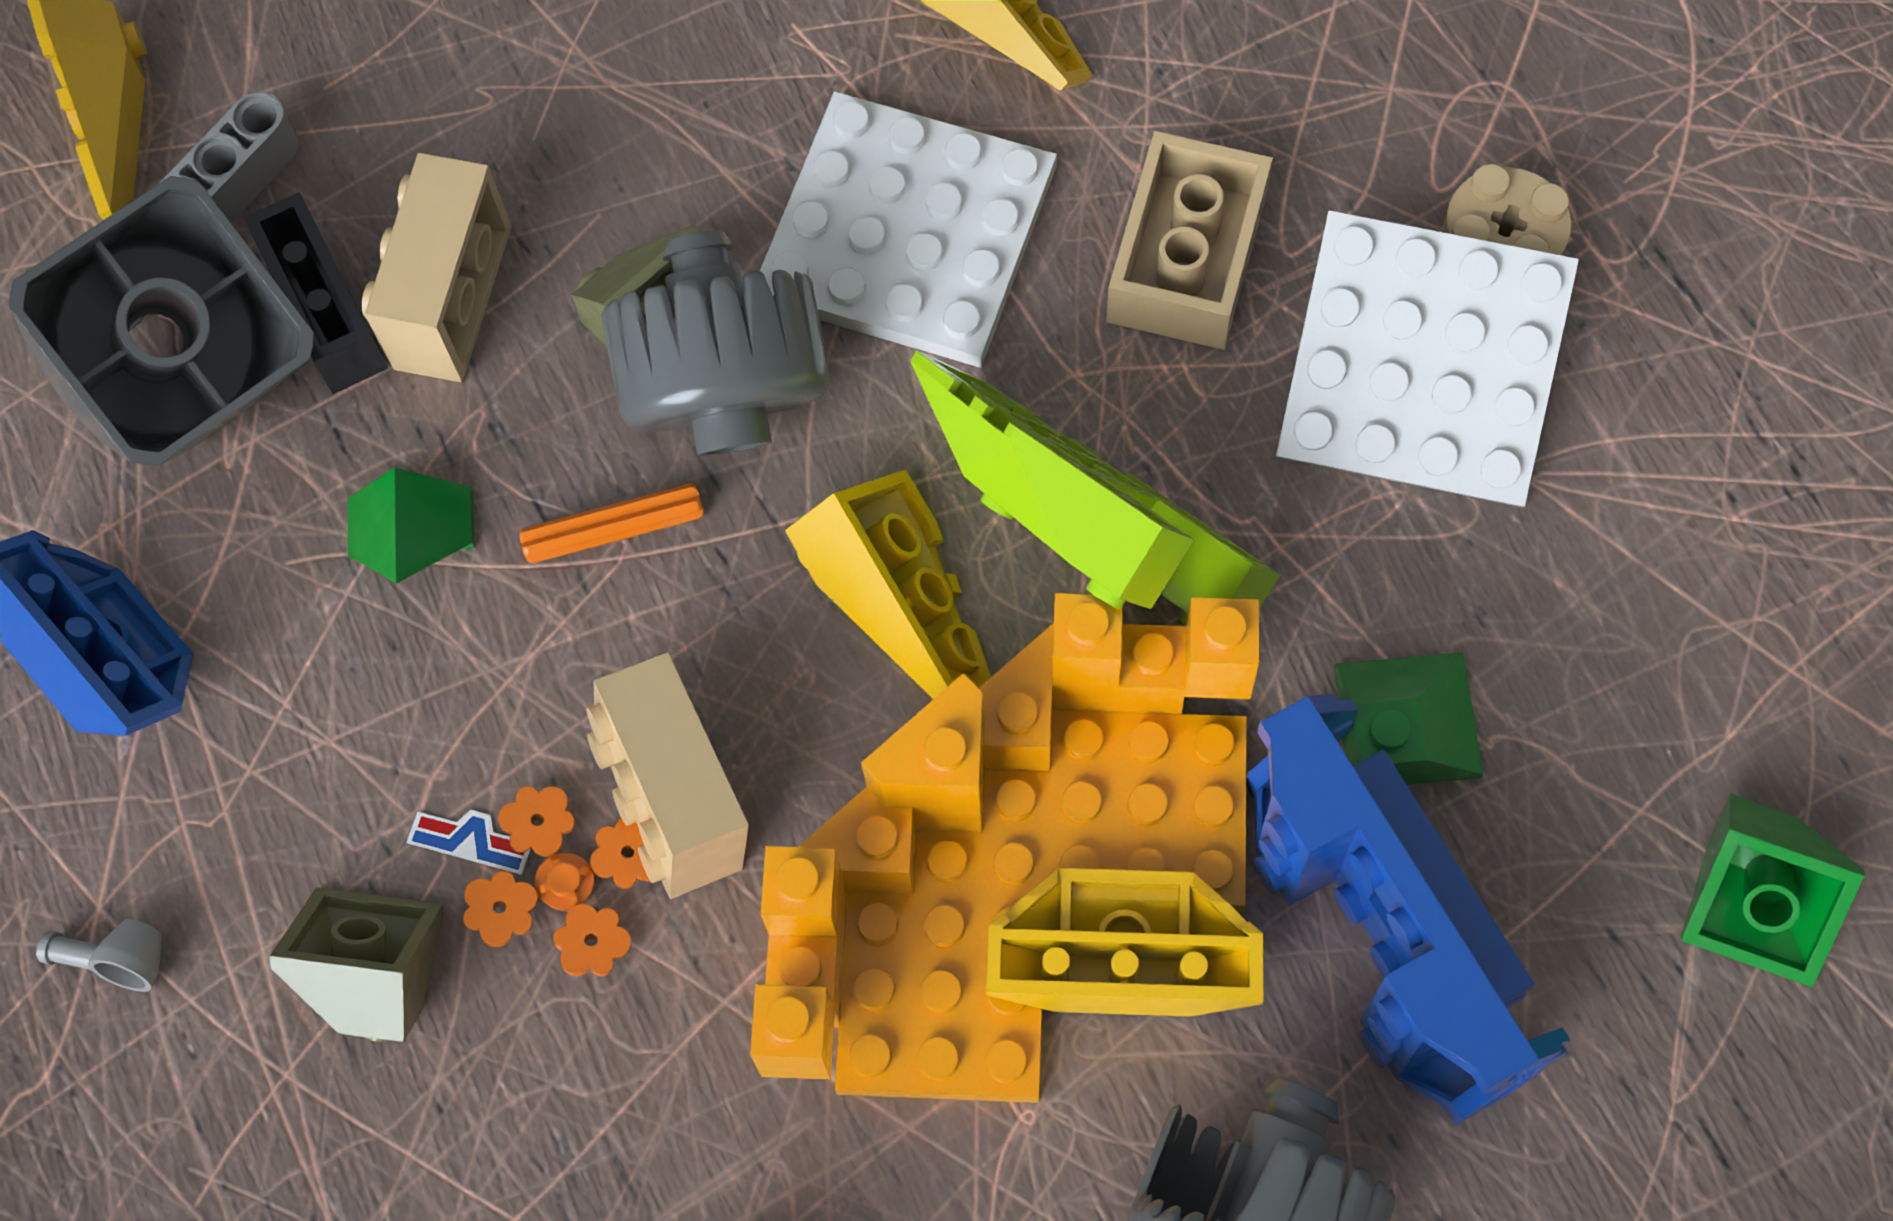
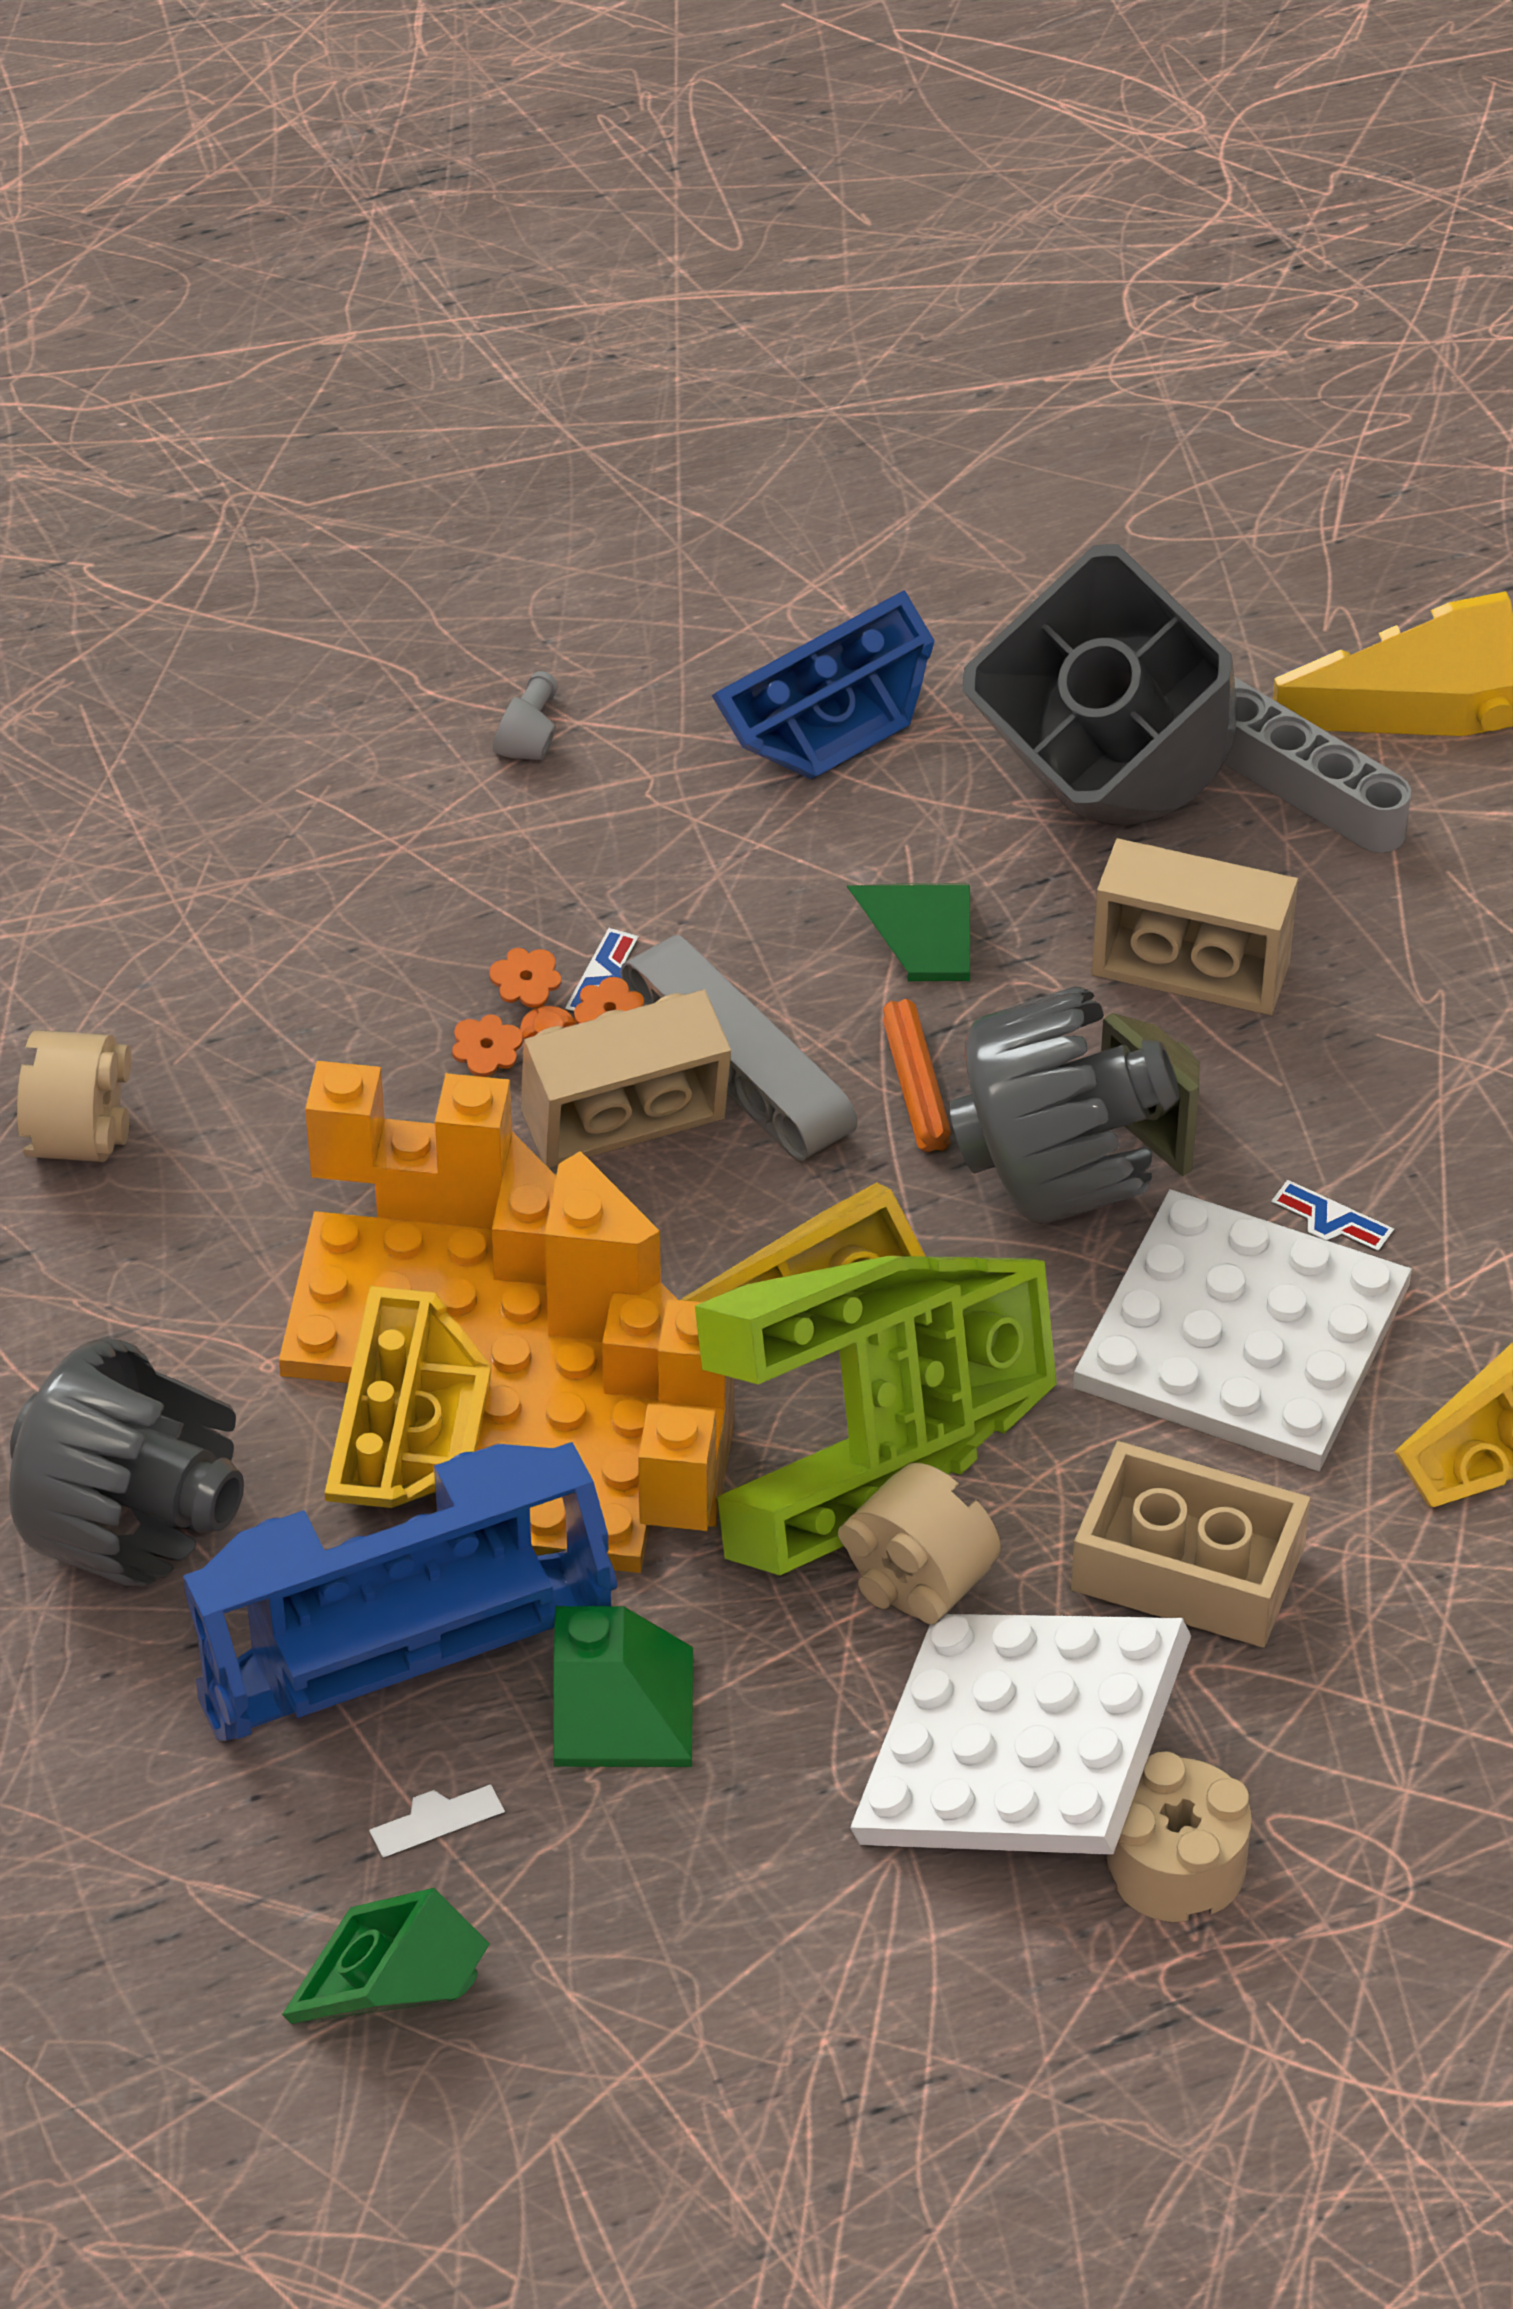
camera: 90 degrees right, 20 degrees down
(314, 285) = (1217, 820): black brick -> none
(361, 960) = (491, 880): olive slope -> none
(550, 715) = (766, 1070): none -> light grey beam
(760, 167) = (1331, 1218): none -> sticker
(1230, 455) = (919, 1543): none -> tan brick
(1559, 877) = (435, 1816): none -> white sticker

